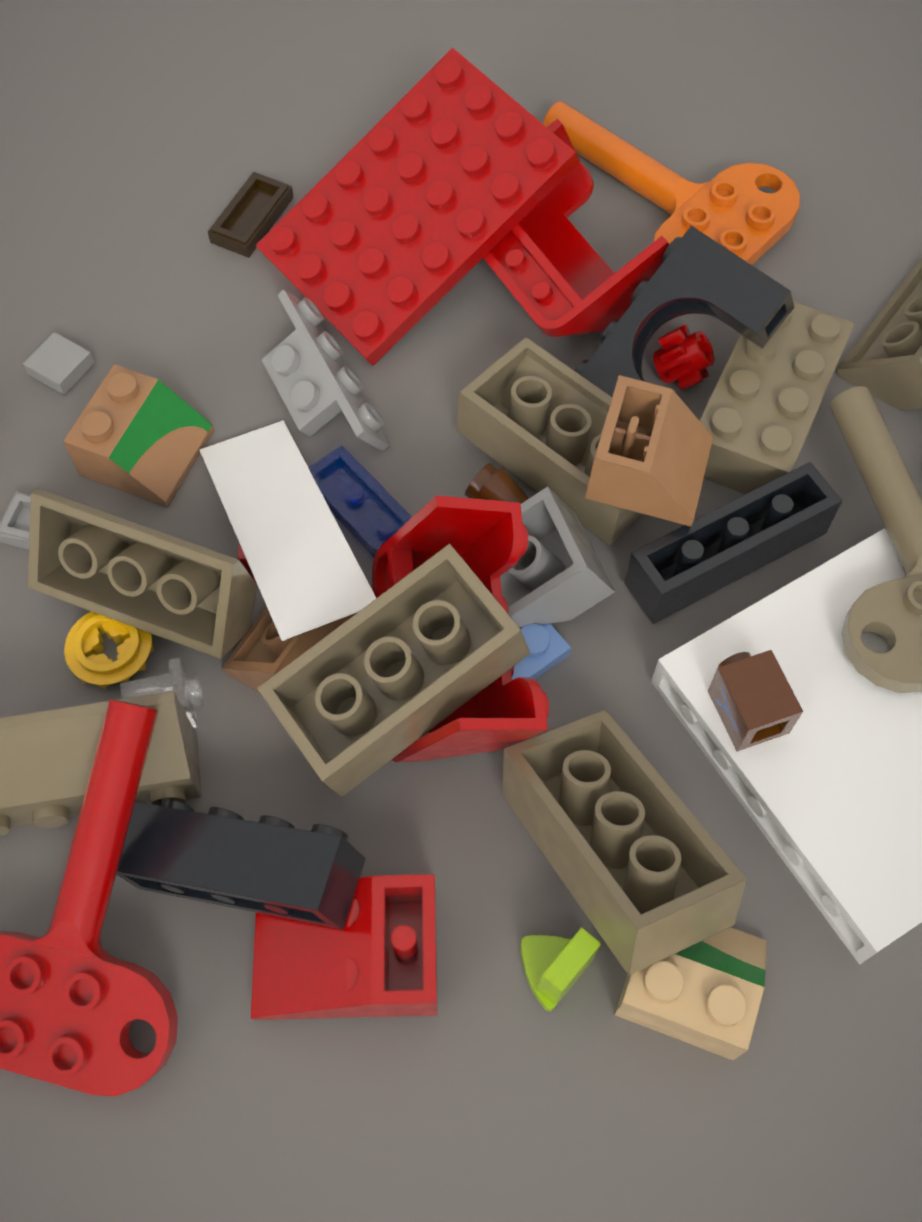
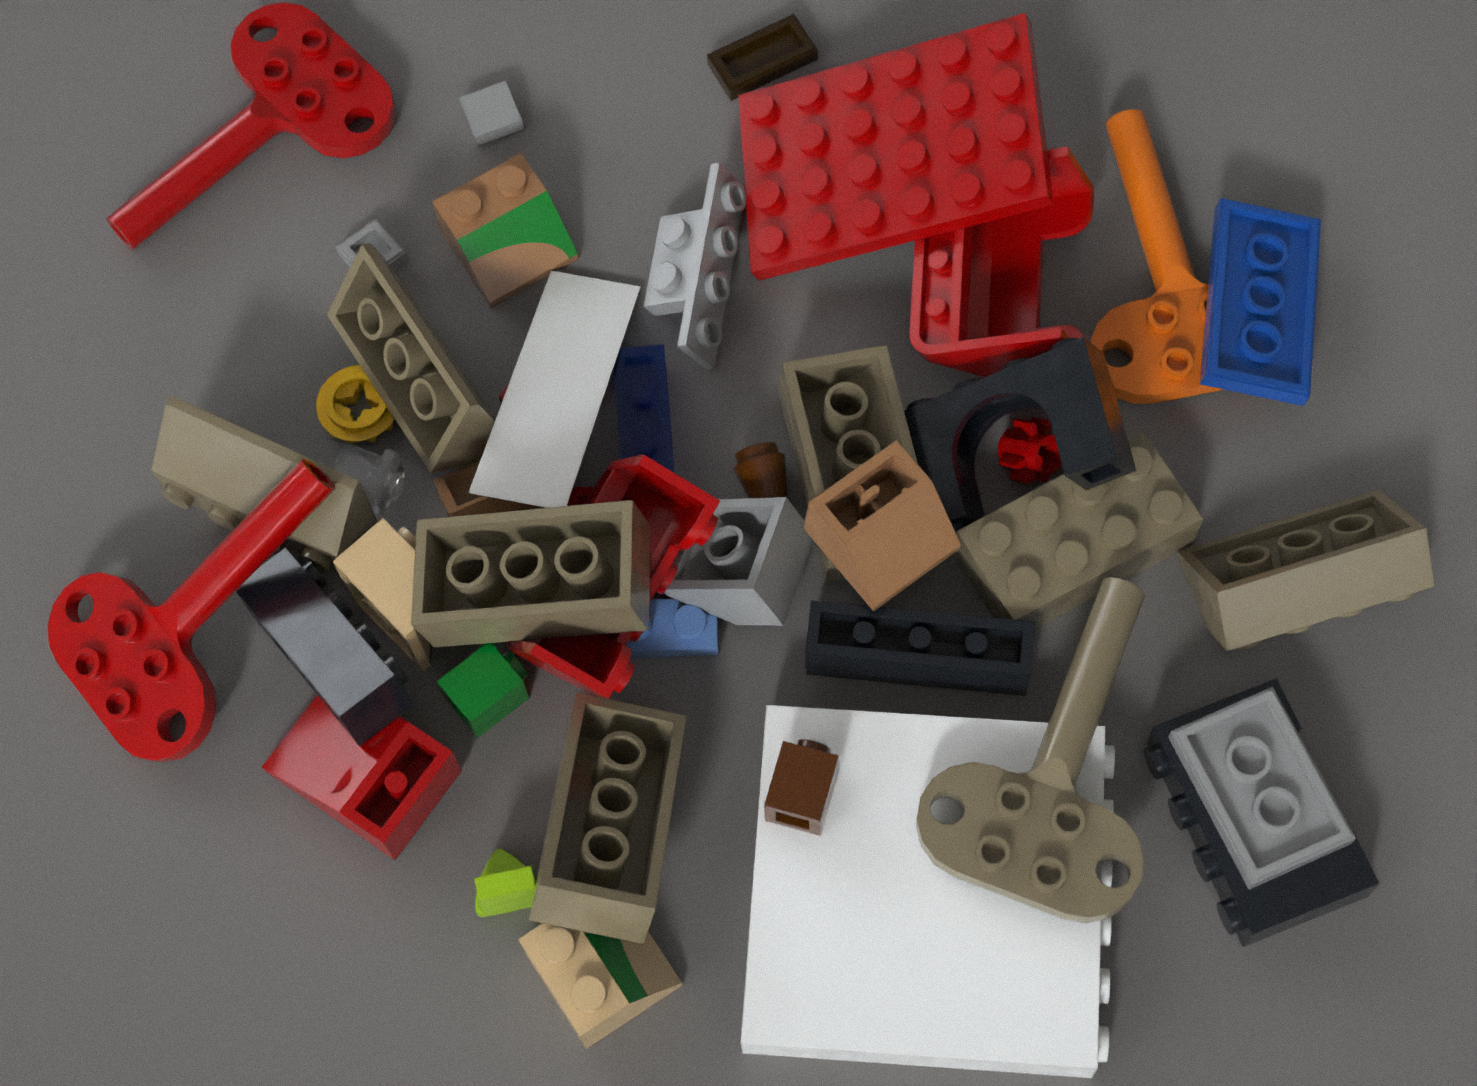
camera: 40 degrees right, 5 degrees up
(261, 771) = (380, 581): none -> tan slope
(405, 806) = (485, 688): none -> green brick
(756, 171) = (1261, 302): none -> blue tile

